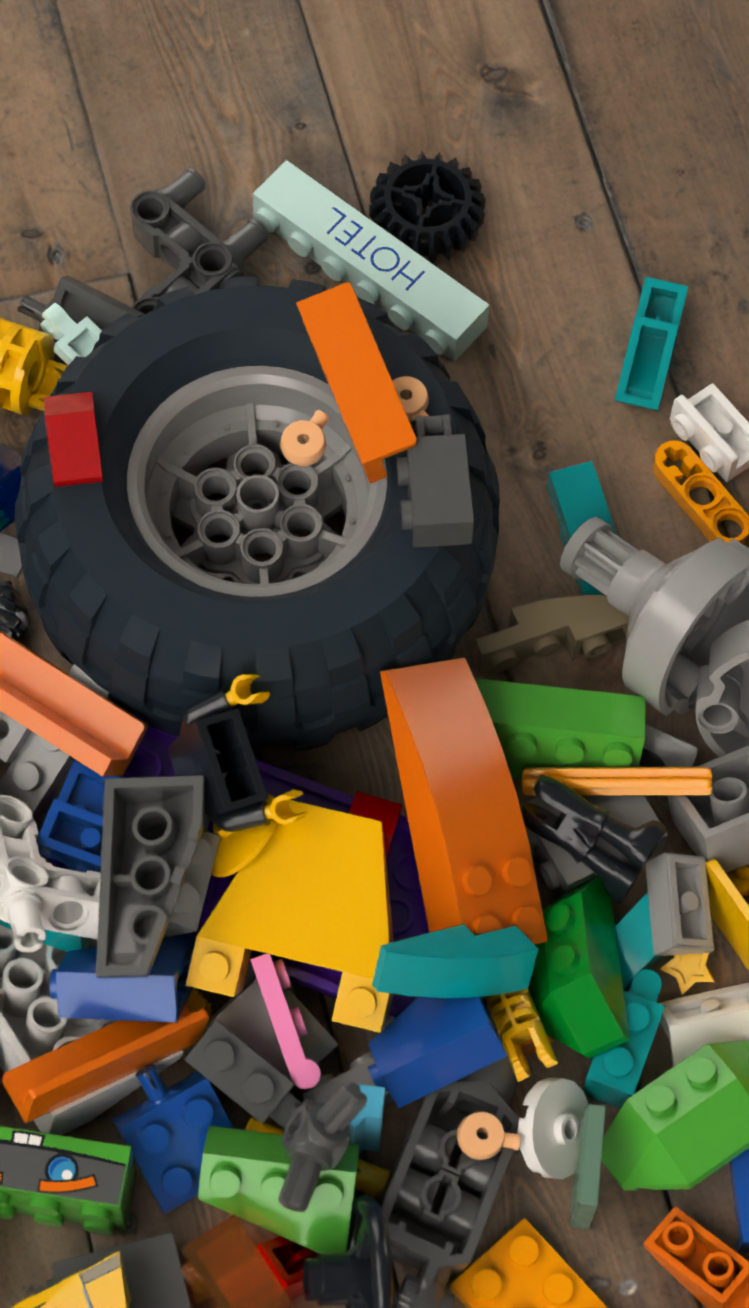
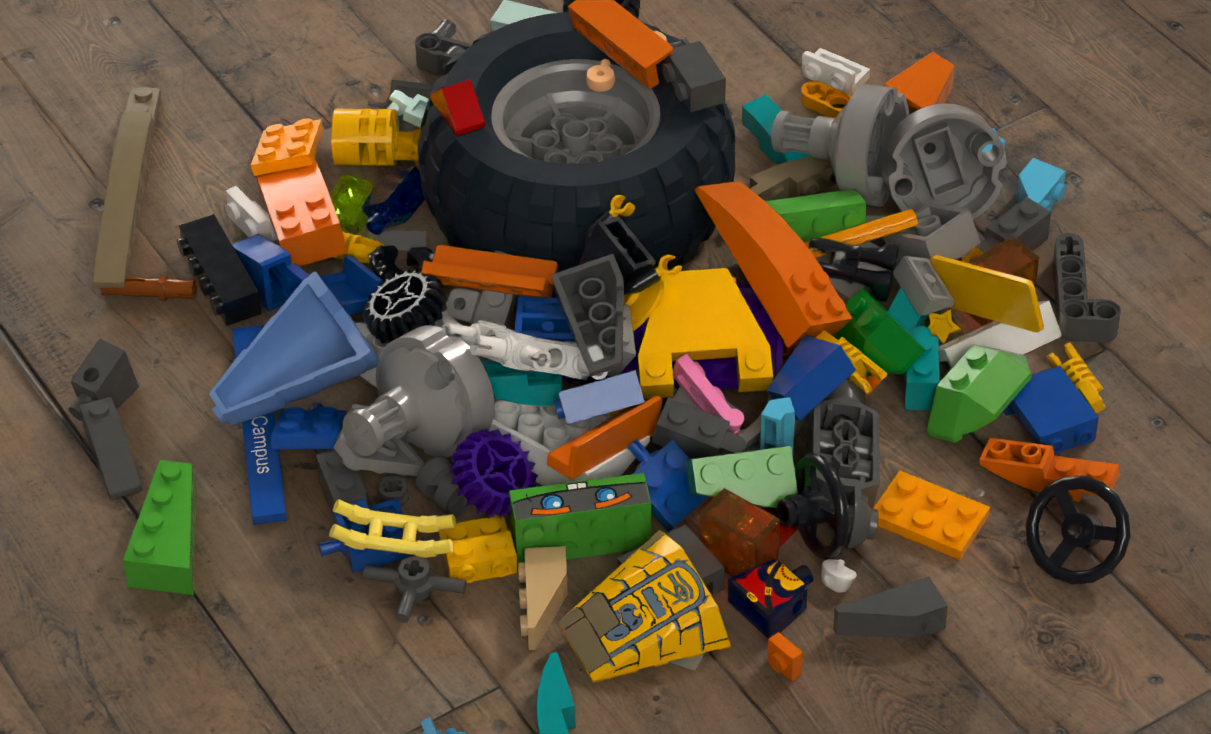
camera: 15 degrees left, 20 degrees down
(316, 1142) = (761, 426): dark grey bush -> none
(456, 964) = (806, 324): teal slope -> none
(494, 1136) = (859, 419): light nougat piece -> none
(552, 1127) = (898, 416): white plate -> none
(587, 1176) = (932, 426): sand green tile -> none
(651, 344) = (773, 38): teal slope -> none

